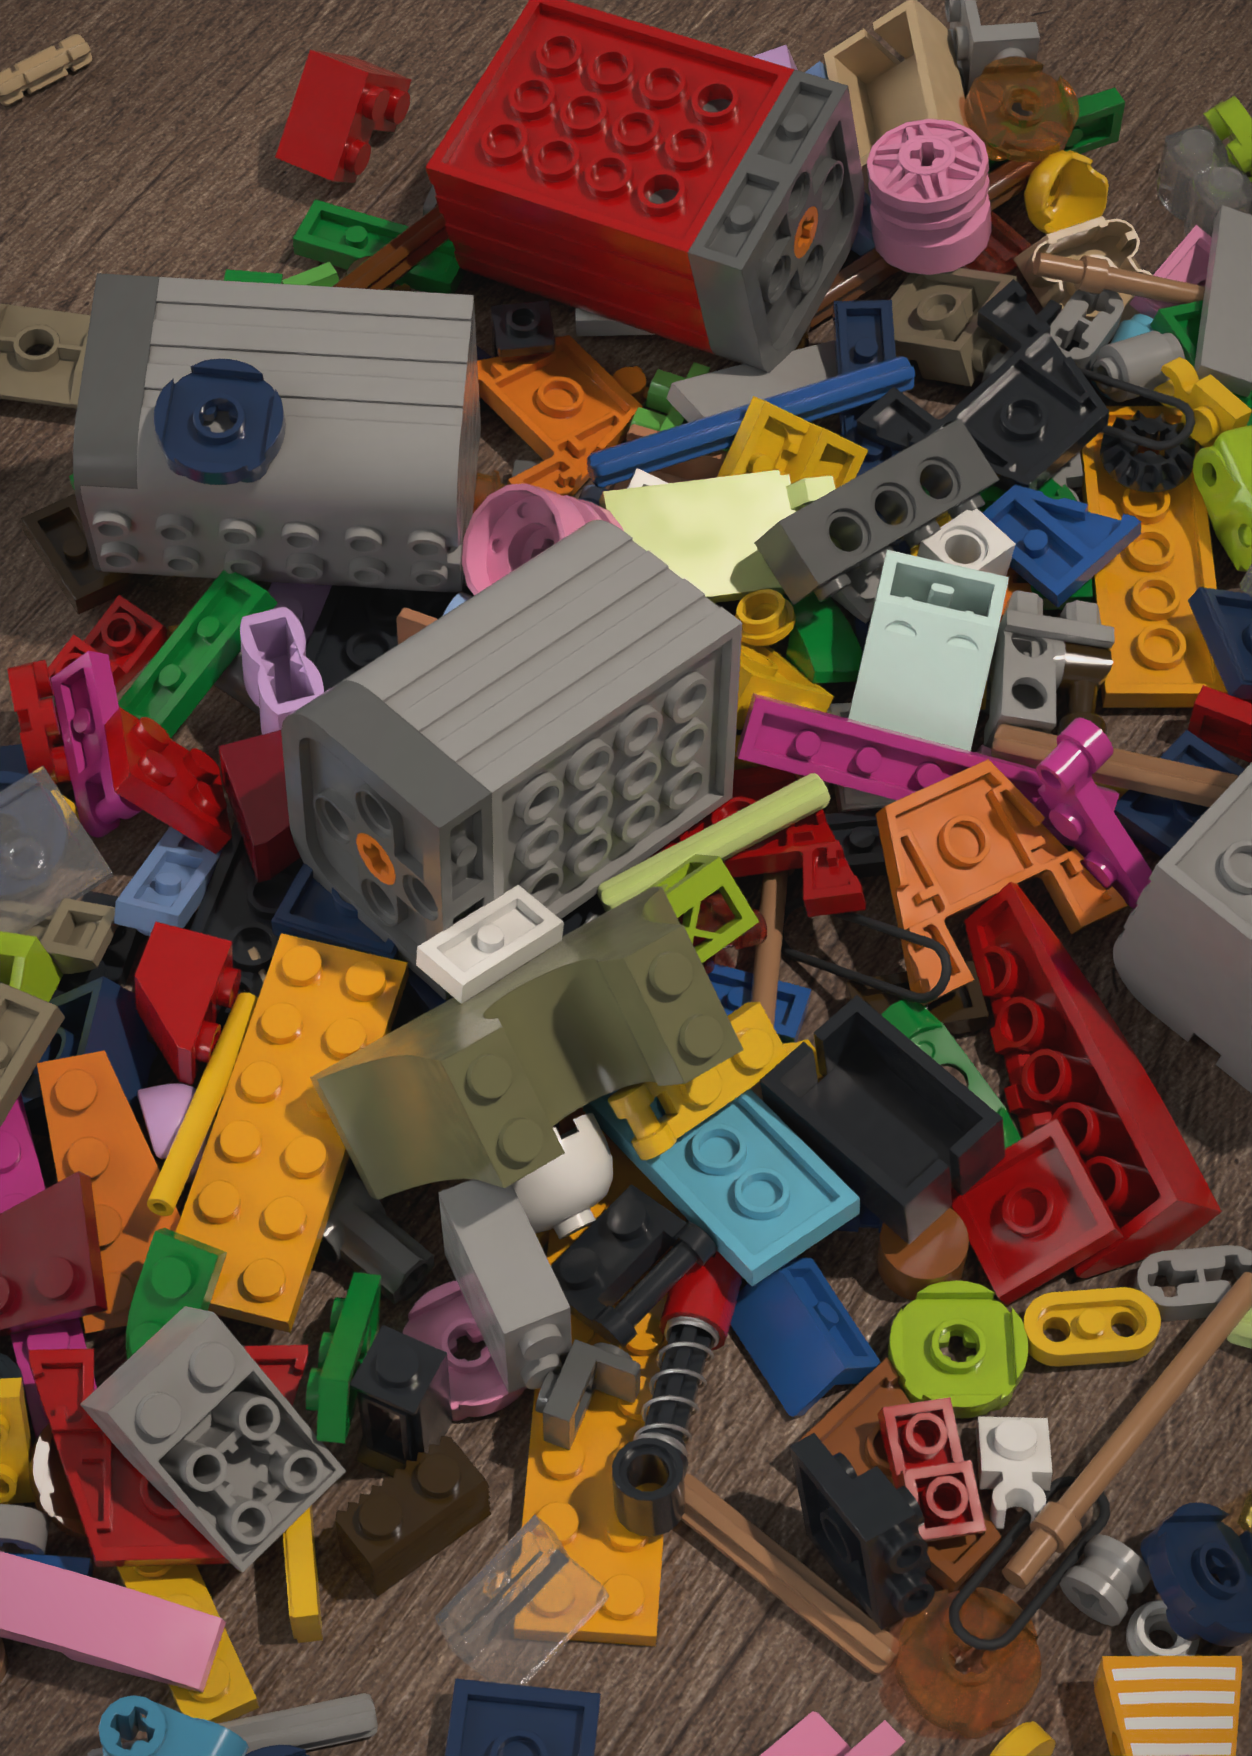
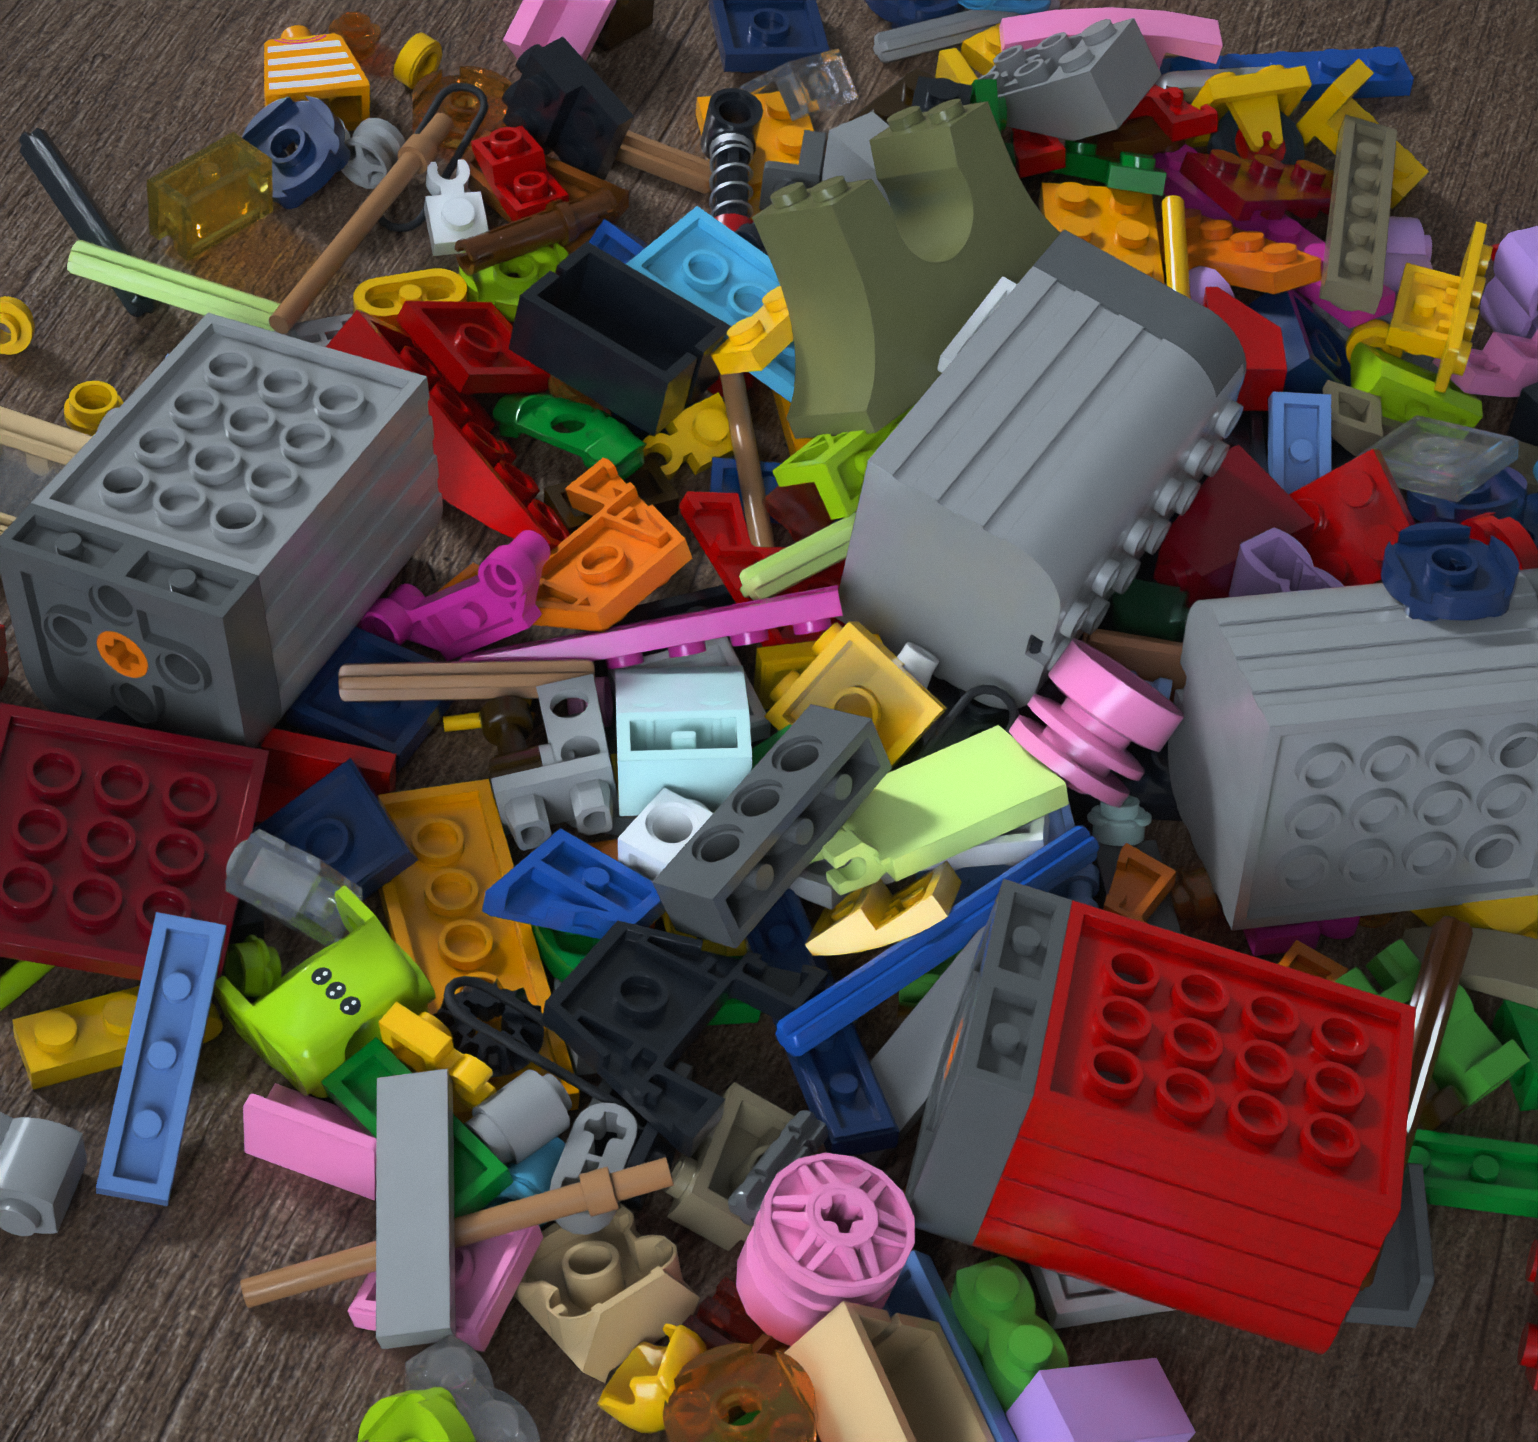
camera: 160 degrees right, 10 degrees down
(853, 1392) = (555, 224): none -> reddish brown pin
(867, 980) = (601, 446): black piece -> none
(939, 290) = (797, 1140): none -> dark grey axle

